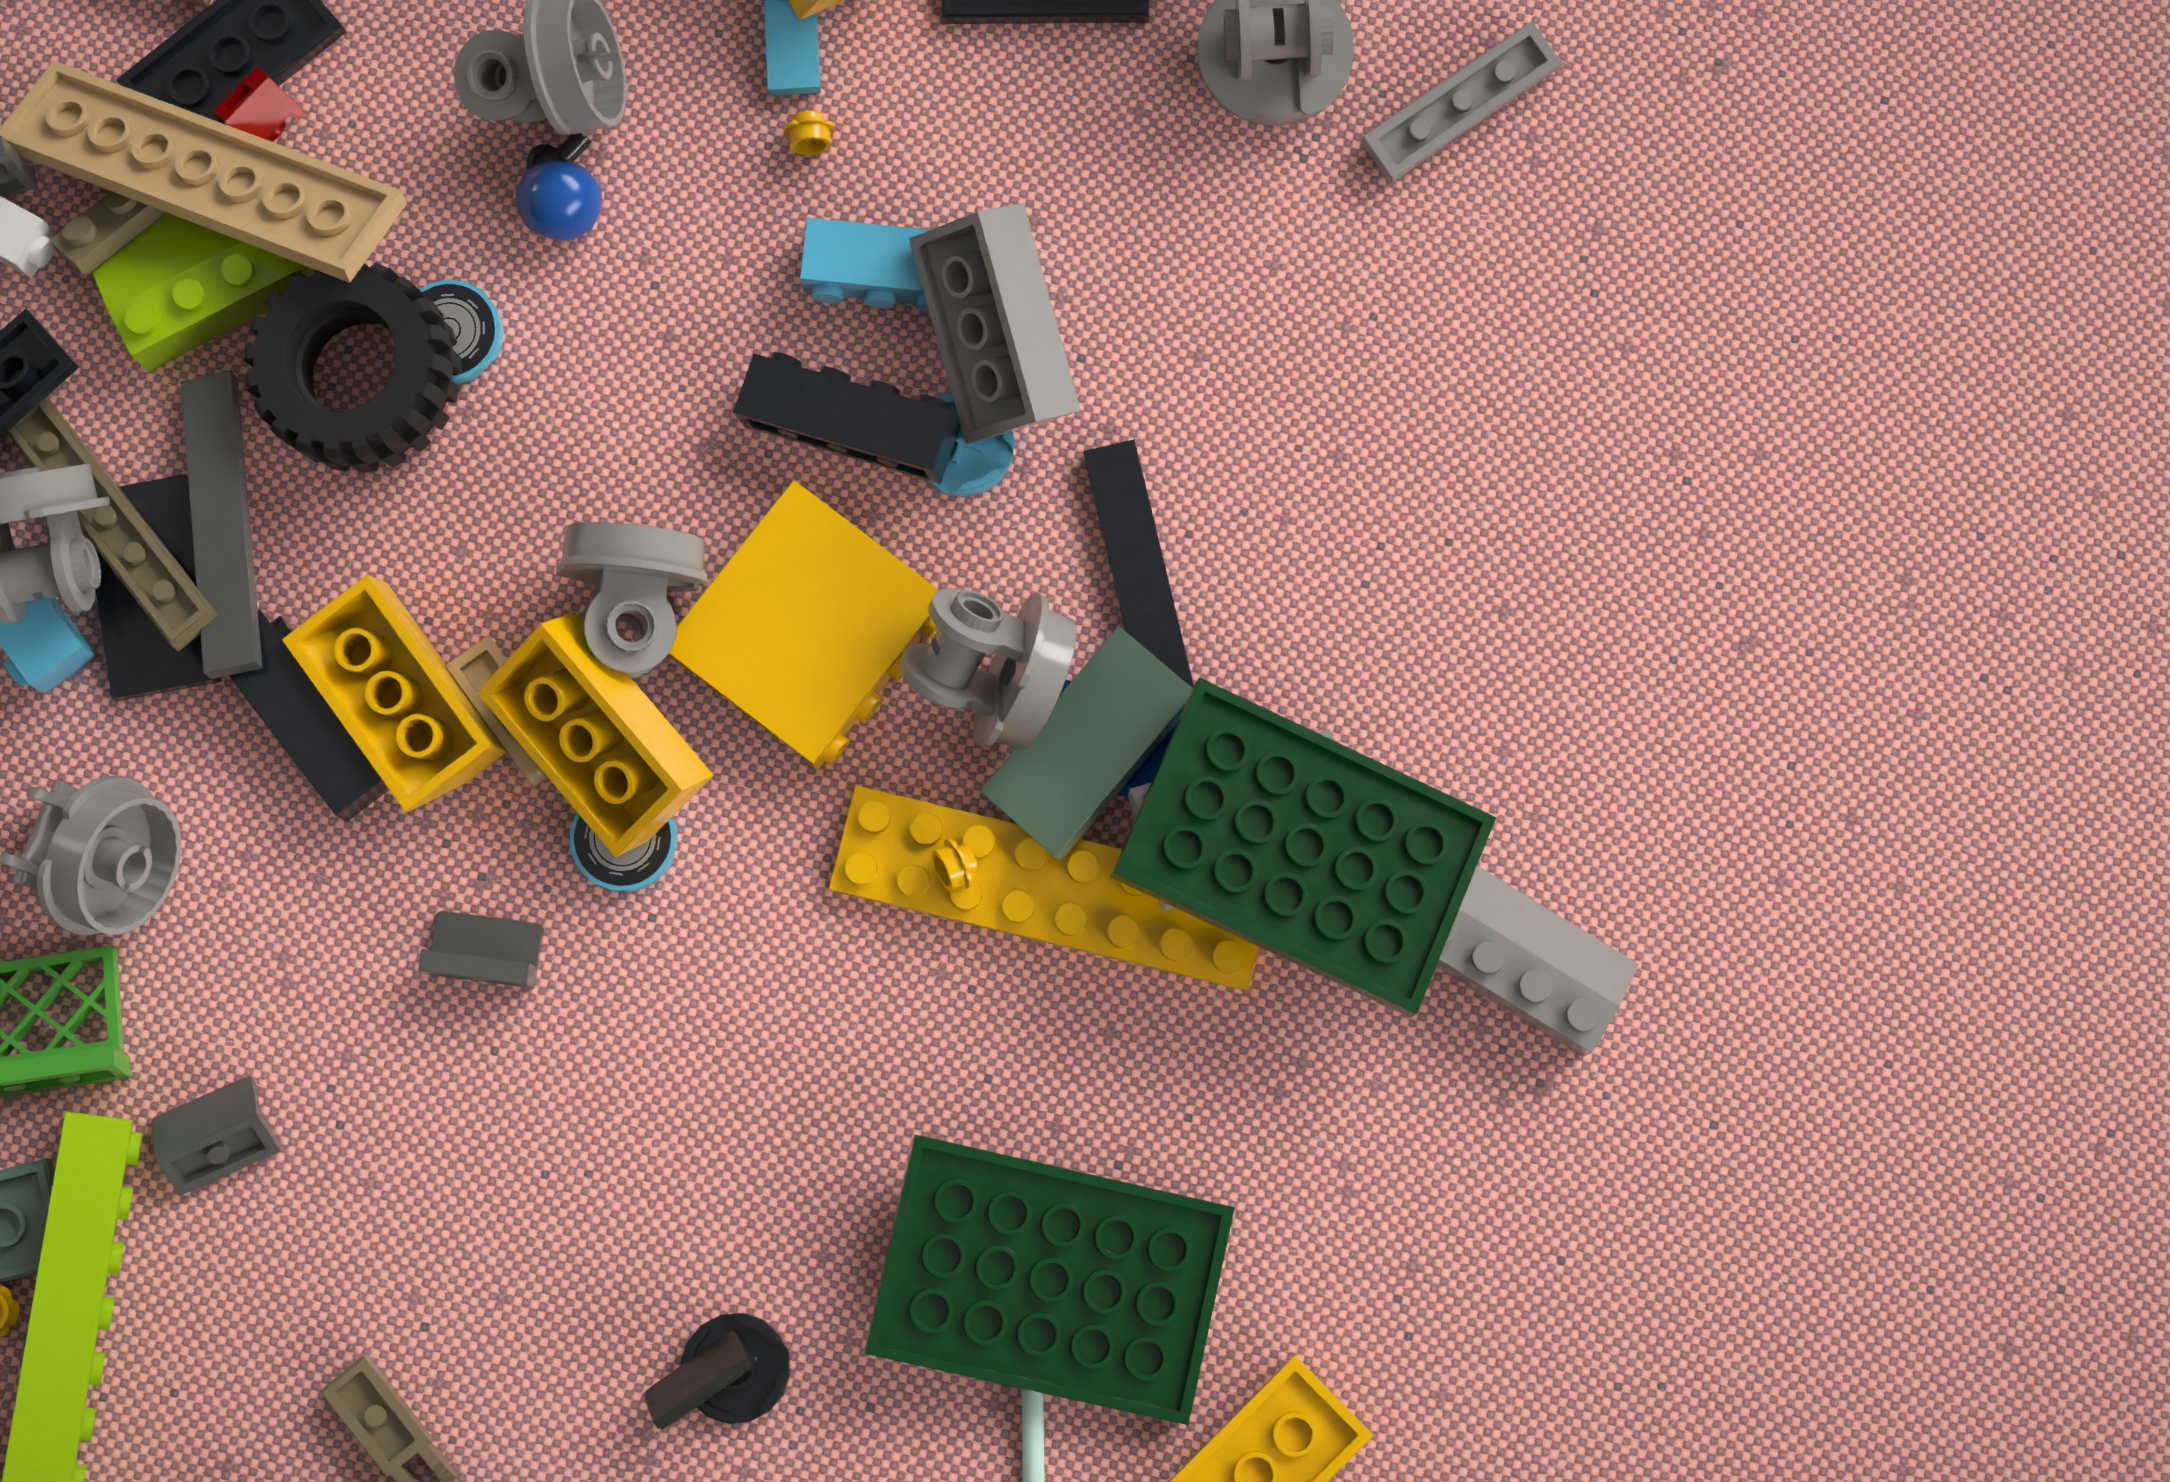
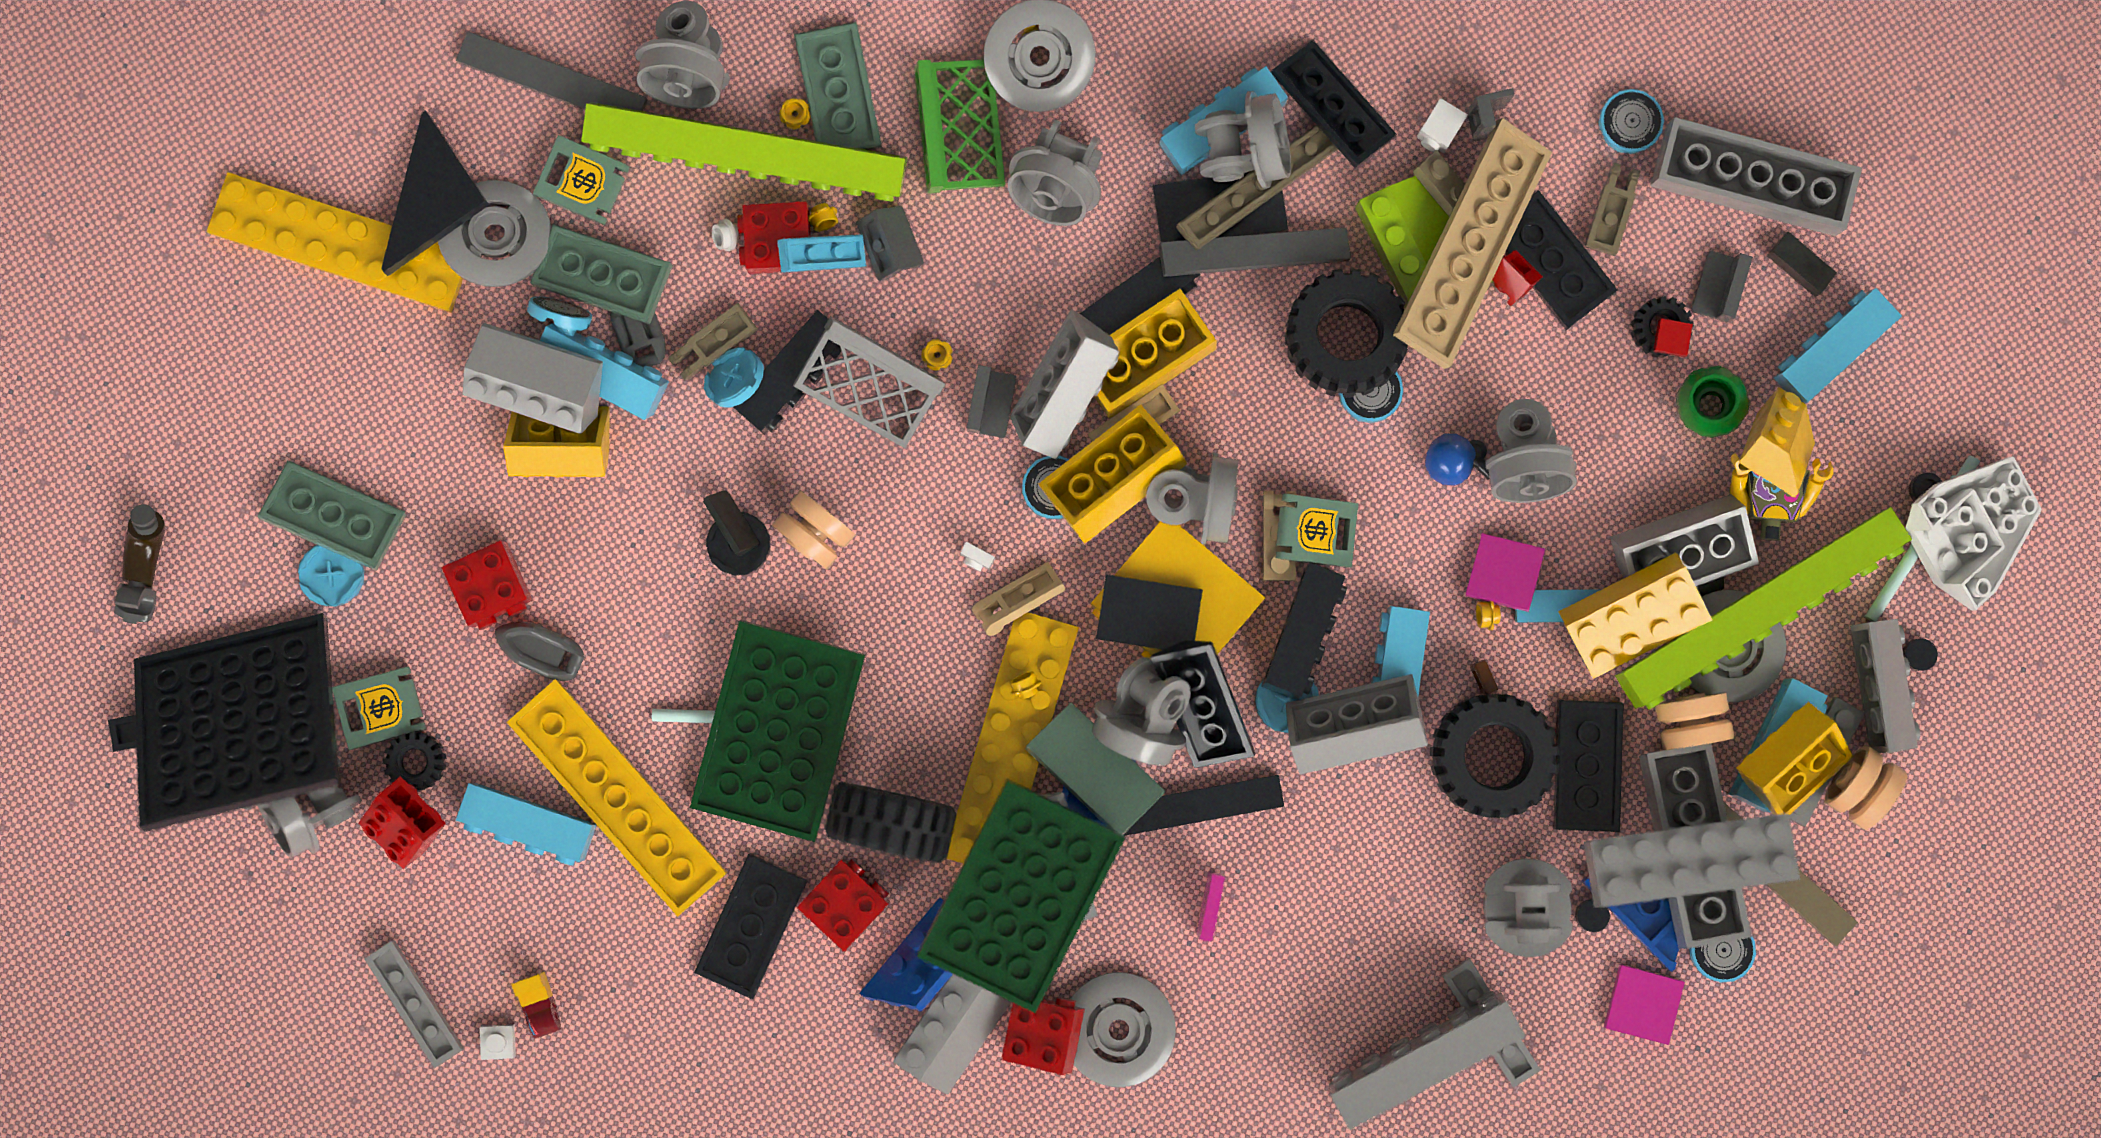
camera: 90 degrees right, 5 degrees up
(171, 1251) = (823, 217): none -> yellow plate
(203, 1419) = (725, 235): none -> white plate
(206, 1330) = (764, 226): none -> red brick
(230, 1247) = (821, 253): none -> medium azure tile
(390, 1041) = (932, 347): none -> yellow plate
(409, 1133) = (881, 357): none -> light grey fence
(440, 1291) = (776, 388): none -> black brick
(447, 822) = (1063, 385): none -> slope
(449, 1389) = (734, 377): none -> medium azure tile
(681, 410) = (1312, 530): none -> sand green container
(694, 467) = (1274, 568): none -> tan plate
(711, 1239) = (813, 530): none -> light nougat wheel
(740, 106) = (1505, 572): none -> dark pink tile
(744, 959) = (976, 557): none -> white plate
(811, 886) = (1018, 598): none -> tan plate
(828, 665) = (1147, 613): none -> black tile
(910, 133) = (1483, 677): none -> reddish brown tile
(995, 552) = (1212, 716): none -> black slope
(1027, 44) = (1537, 766): none -> black tyre
(1194, 1073) = (890, 822): none -> black tyre
(1303, 545) = (1210, 906): none -> dark pink tile
(1334, 1149) = (844, 903): none -> red brick
(1382, 1309) = (751, 926): none -> black tile
(1446, 1042) = (904, 976): none -> blue wing
(1500, 738) = (1149, 1034): none -> light grey piece
(1527, 192) = (1425, 1060): none -> light grey brick
(1536, 804) = (1044, 1038): none -> red brick

